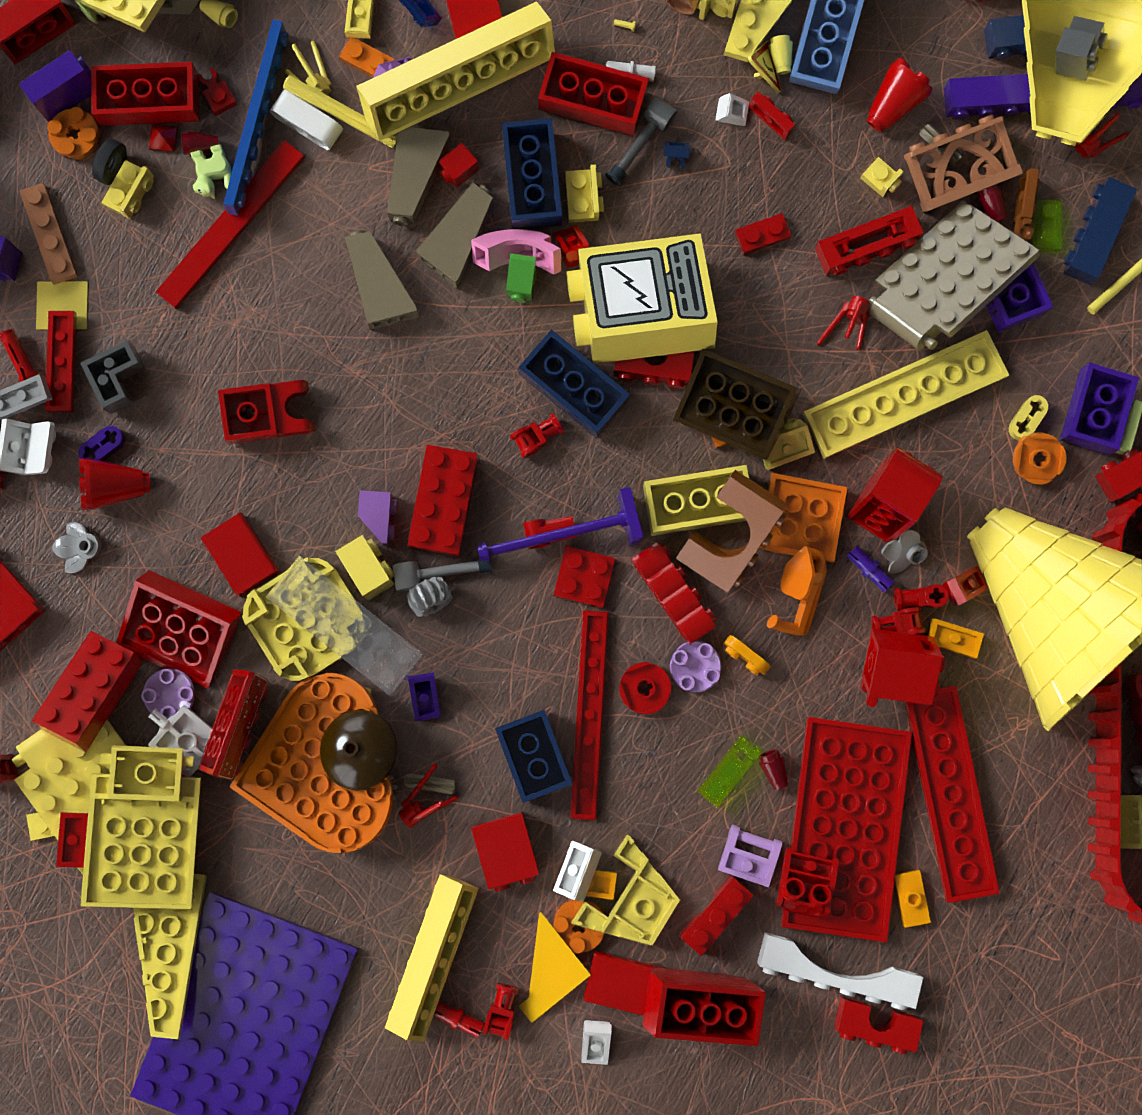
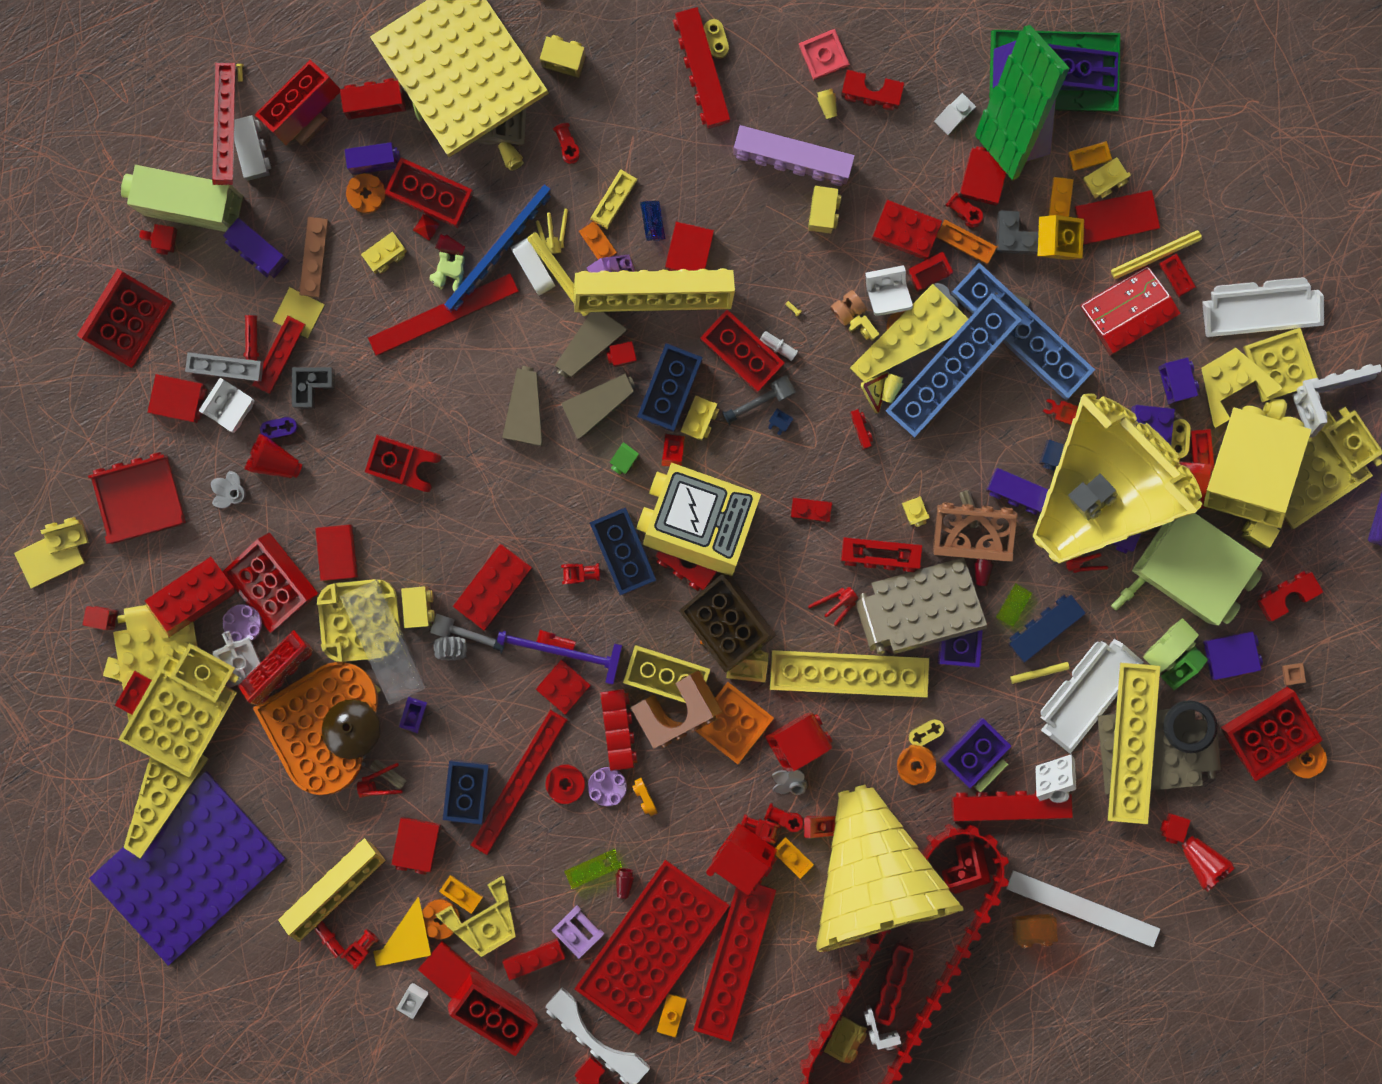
camera: 30 degrees right, 5 degrees up
(109, 161) = (380, 229): black tyre -> none
(217, 93) = (480, 216): red plate -> none
(376, 512) = (442, 573): medium lavender slope -> none
(495, 248) = (631, 432): bright pink arch -> none
(577, 871) = (456, 883): white slope -> none
(732, 110) = (836, 409): white slope -> none
(803, 582) = (707, 770): orange piece -> none
(807, 884) = (604, 969): red slope -> none
(870, 568) = (761, 781): dark purple pin -> none
(898, 95) = (955, 461): red cone -> none
(1025, 206) = (1004, 584): dark orange hinge -> none

